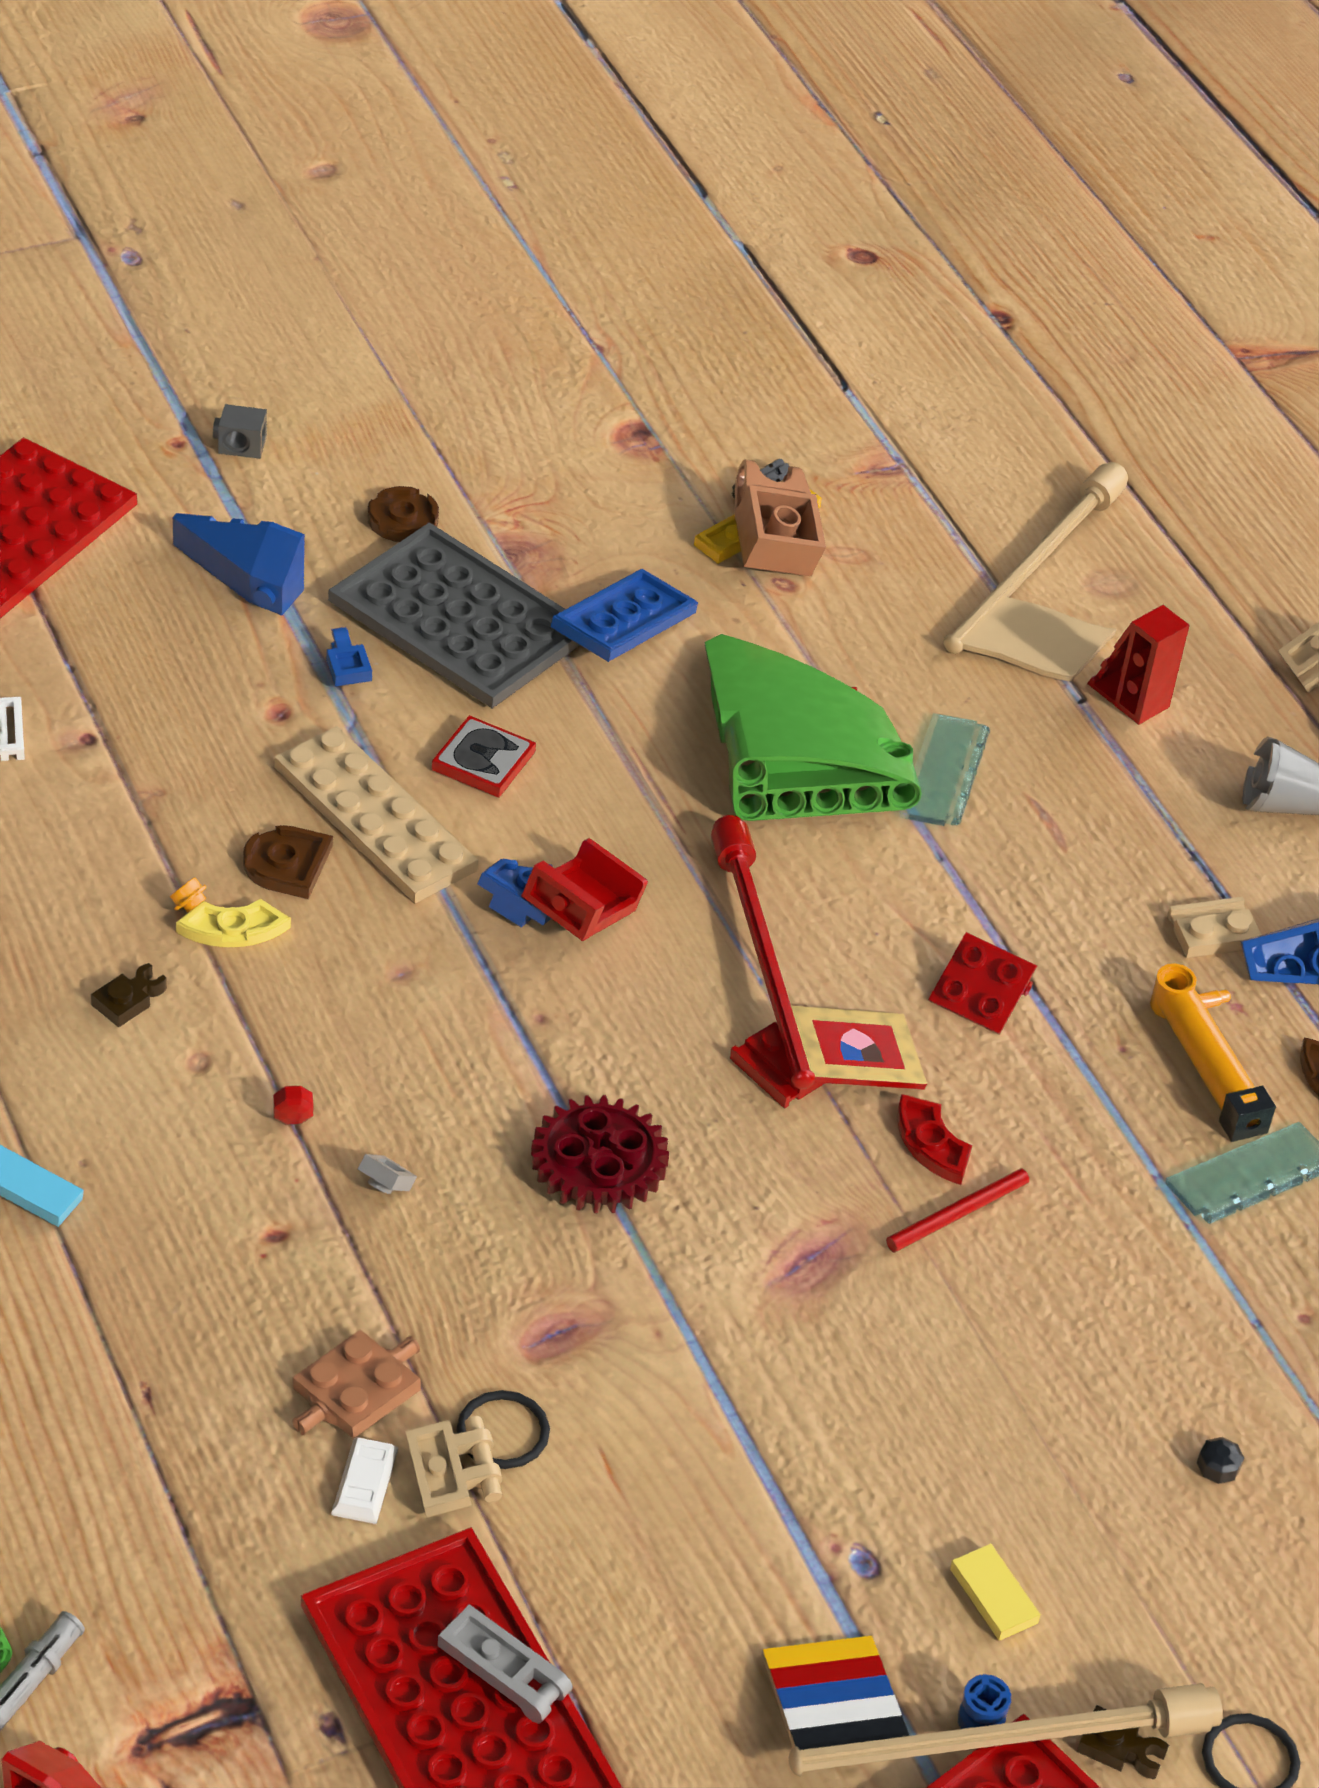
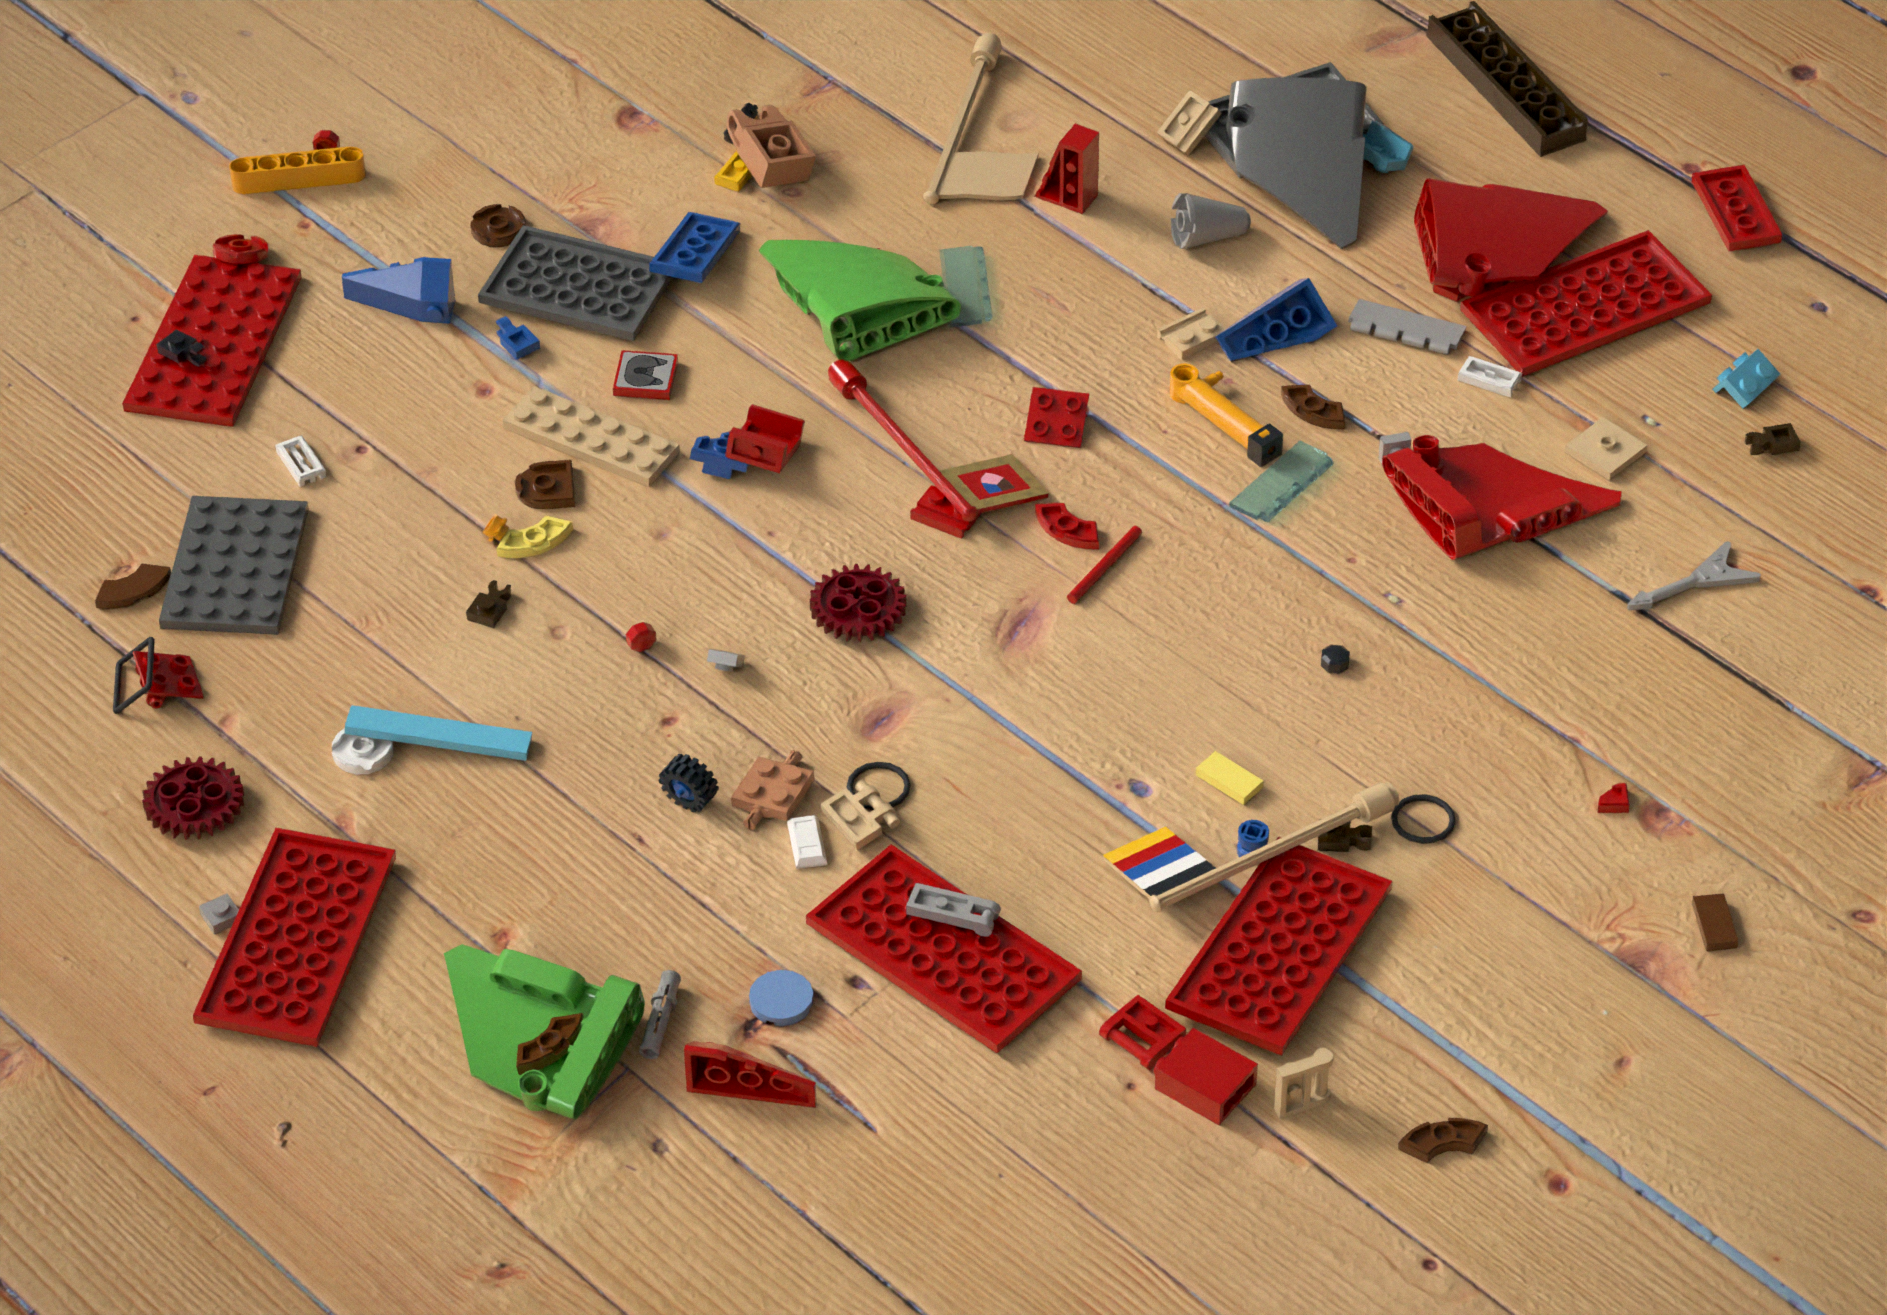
camera: 15 degrees left, 0 degrees up
(79, 447) = (240, 250): none -> red tile
(199, 375) = (297, 170): none -> light orange beam
(208, 1710) = (781, 997): none -> medium blue tile
(241, 431) = (350, 201): dark grey brick -> none
(241, 1337) = (688, 782): none -> black wheel
(251, 354) = (325, 140): none -> red tile

